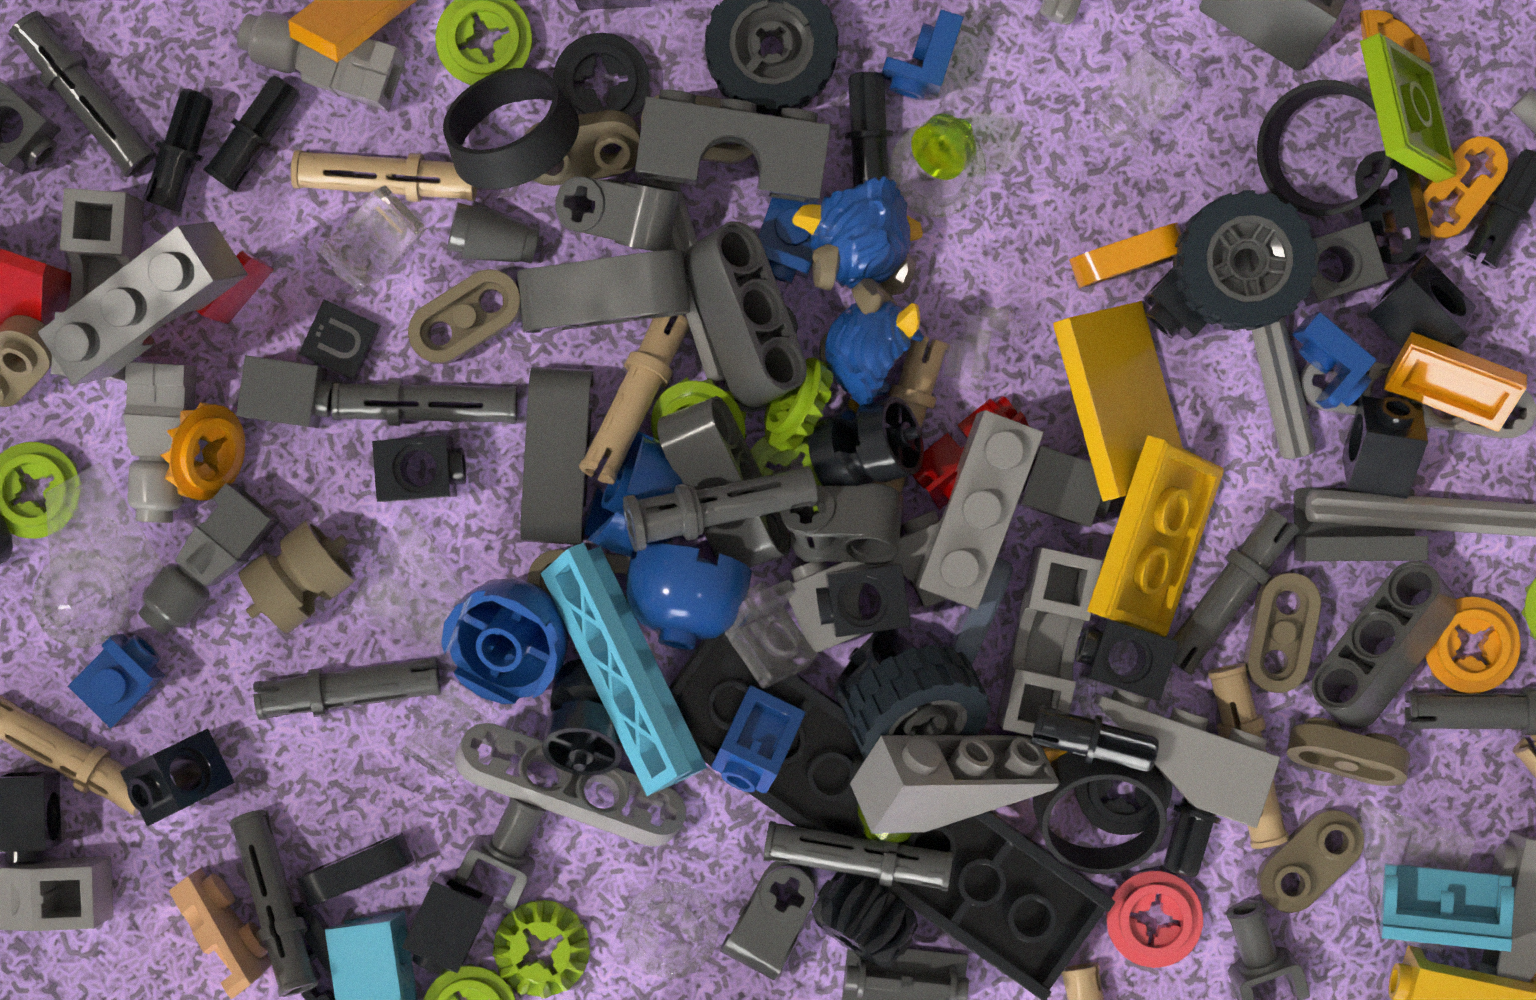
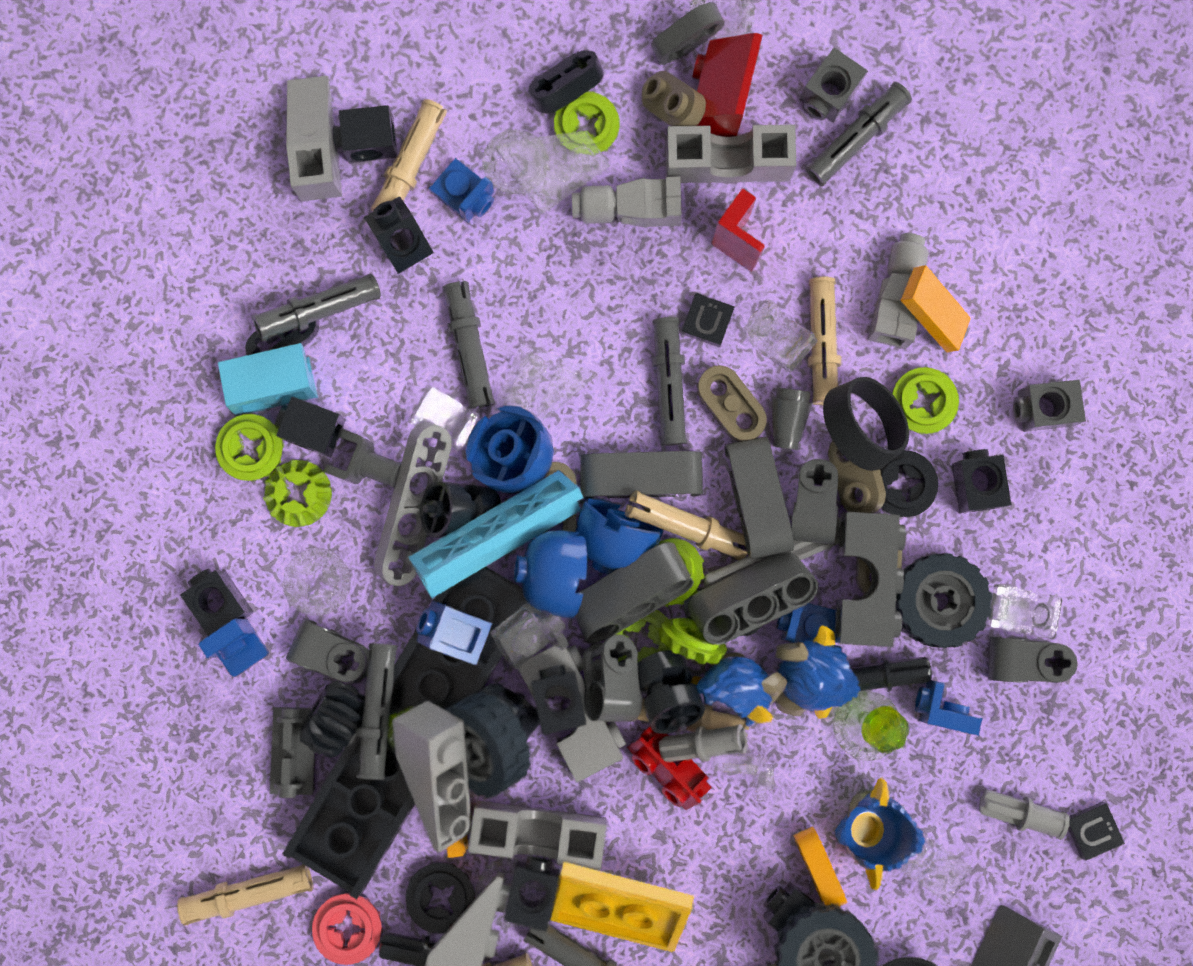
camera: 85 degrees right, 5 degrees down
(162, 283) = (741, 195): arch -> none
(179, 151) = (827, 201): black axle -> none
(207, 557) = (550, 243): dark grey piece -> none
(217, 928) = (296, 271): light nougat wing -> none
(221, 455) = (621, 247): light orange gear -> none
(253, 133) = (843, 249): black axle -> none
(284, 392) = (668, 284): dark grey brick -> none
(289, 583) = (537, 299): dark tan wheel -> none
(355, 869) = (344, 360): black beam -> none
(391, 468) = (629, 362): black brick -> none
(691, 510) = (612, 571): dark grey pin -> none
(942, 401) = (704, 743): none -> light grey axle
(976, 623) = (560, 784): sand blue tile -> none
(979, 509) = (629, 777): light grey arch -> none
(1063, 488) = (650, 838): dark grey brick -> none
(1073, 772) = (454, 878): black tyre -> none
(1085, 169) = (879, 833): none -> blue hair
(1094, 739) = (472, 875): black axle -> none
(1116, 390) = (723, 868): yellow tile -> none

